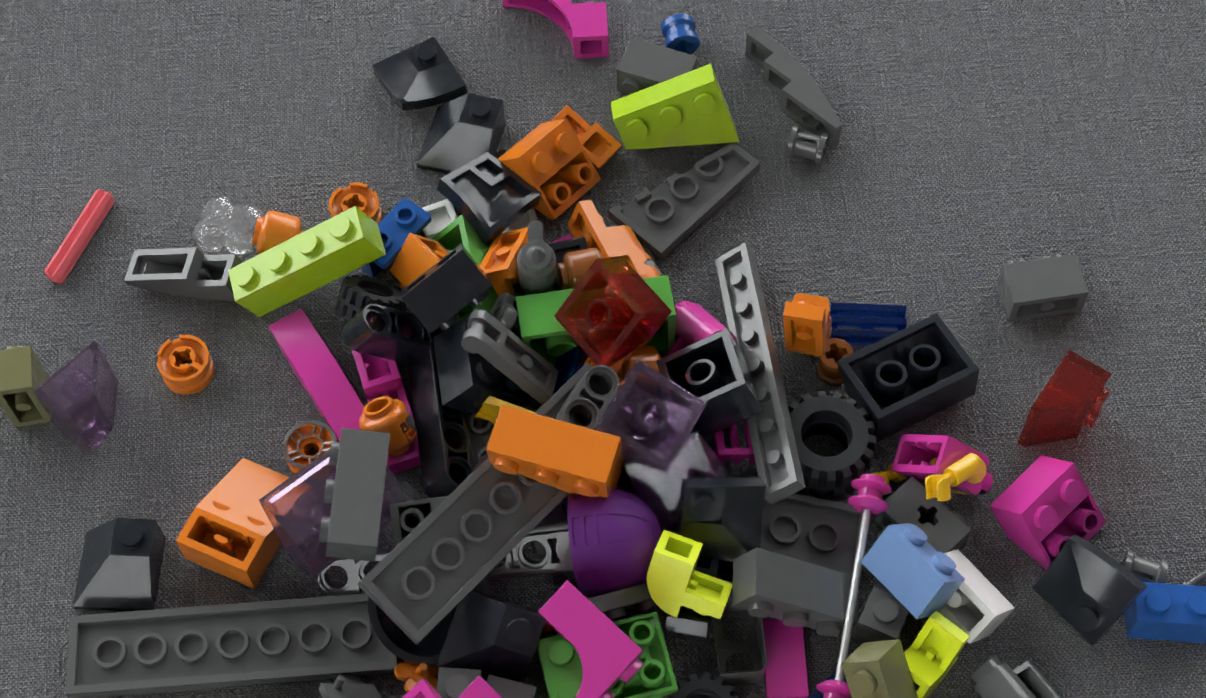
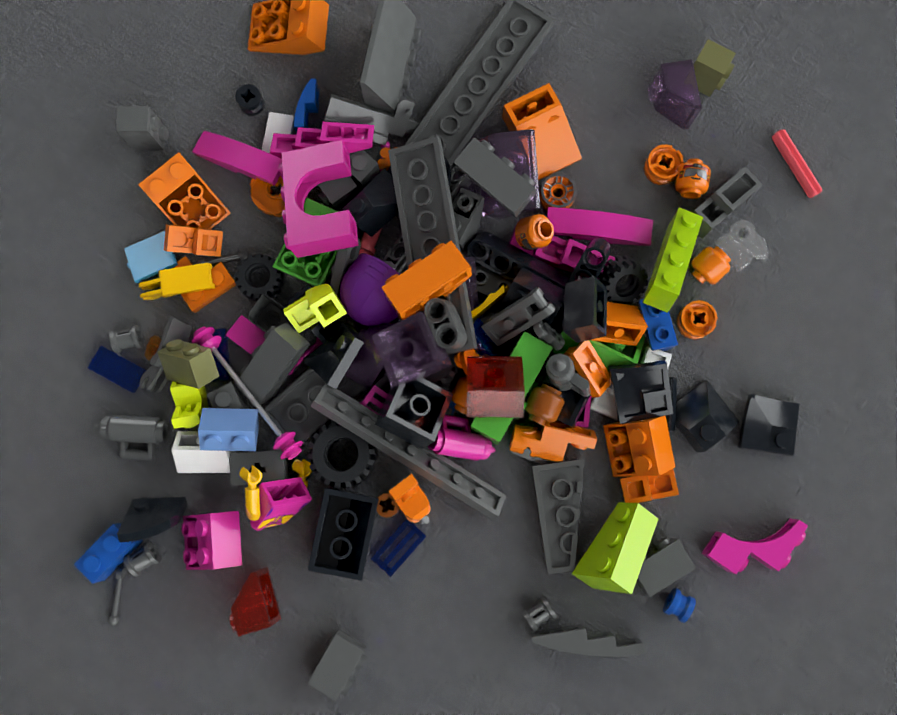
camera: 130 degrees right, 20 degrees up
(120, 566) = (565, 62): black slope -> none
(182, 317) = (692, 179): none -> orange head

